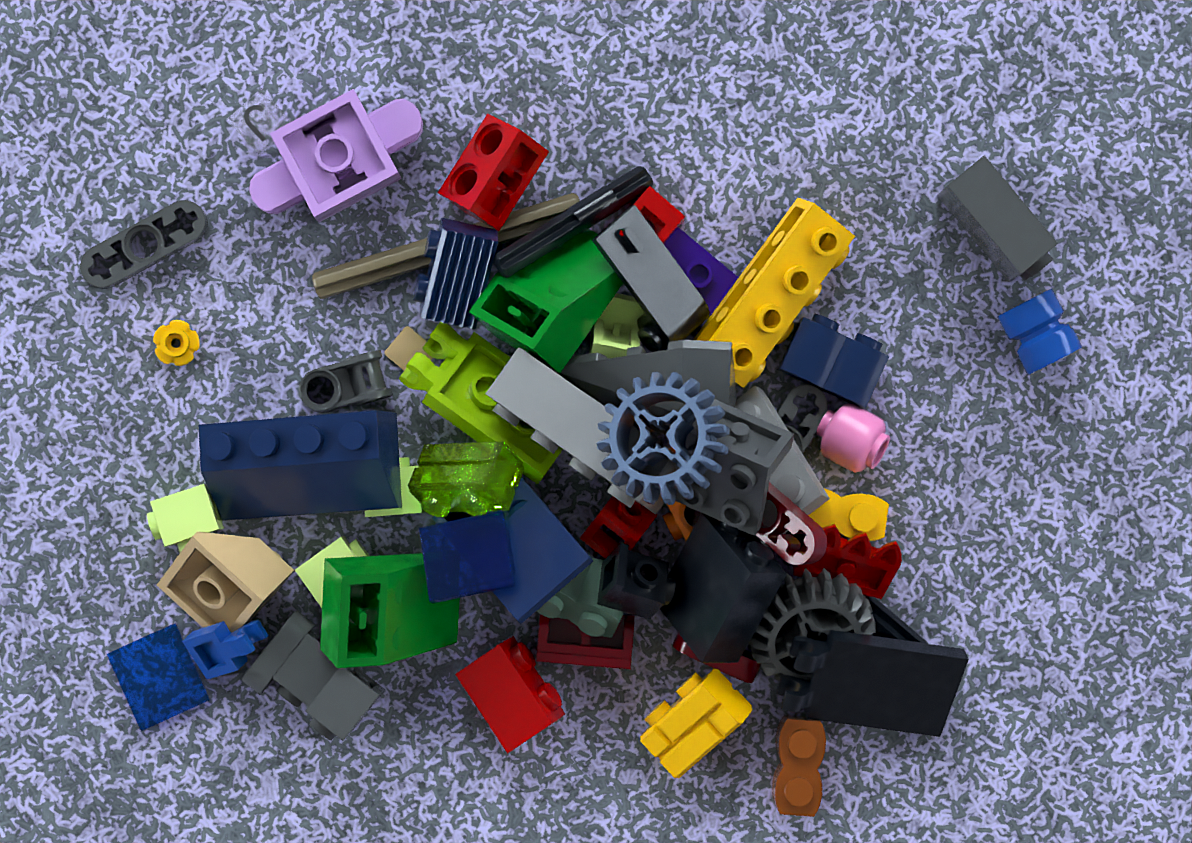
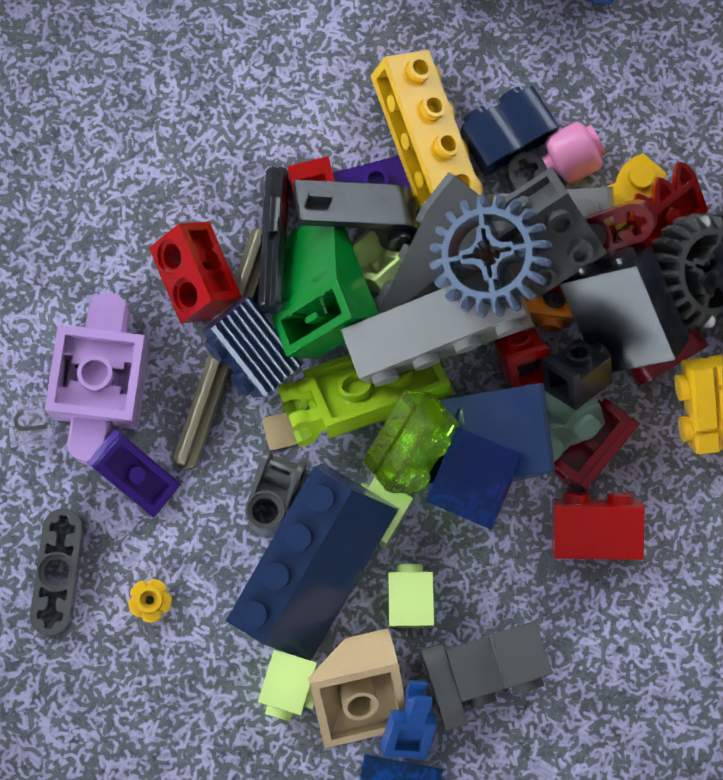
camera: 55 degrees left, 10 degrees down
(274, 249) = (134, 473): none -> dark purple plate
(381, 611) = (467, 578): green slope -> none

